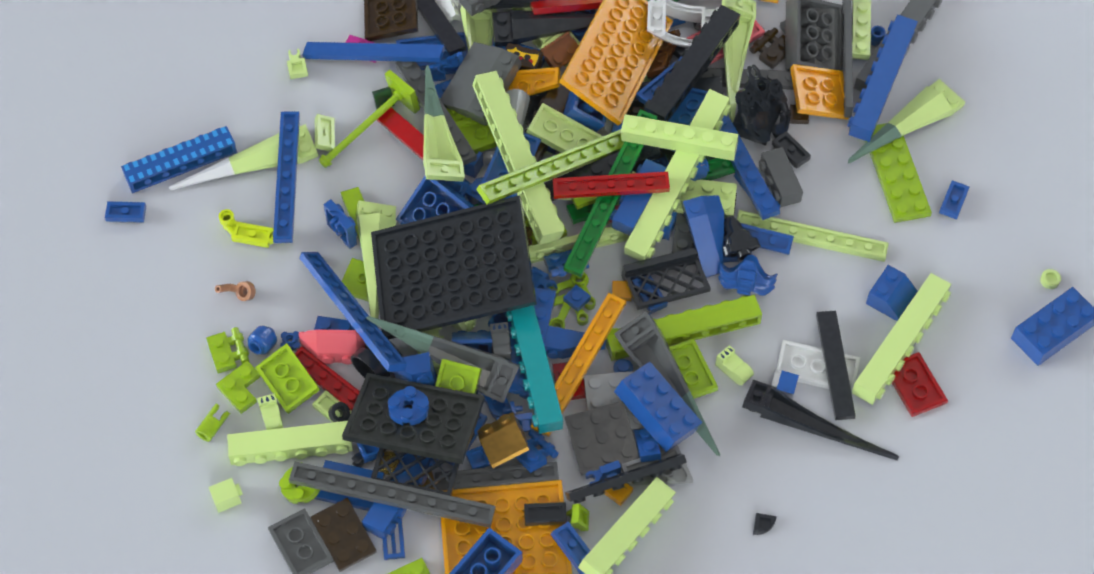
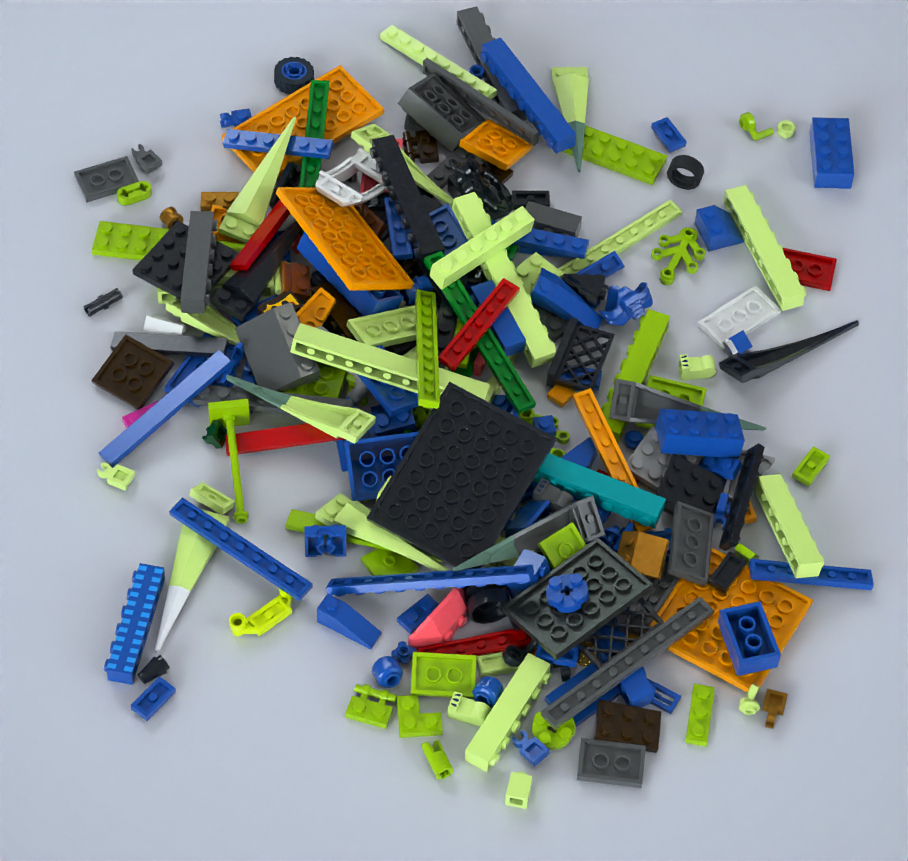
camera: 55 degrees left, 5 degrees down
(151, 196) = (156, 667): none -> black cone
(240, 290) = (318, 659): nougat plate -> none
(269, 482) = (532, 750): none -> blue plate
(286, 286) = (346, 621): none -> blue slope
(297, 416) = (488, 690): none -> blue head
(546, 469) = (691, 543): none -> dark grey tile
(711, 512) = (811, 466): none -> lime plate
(763, 523) = (845, 441): black tile -> none
(835, 365) = (751, 303): black tile -> none
(839, 282) = (686, 237): none -> lime plant
(922, 233) = (690, 164): none -> black tyre
(1024, 245) = (748, 123): none -> lime plate

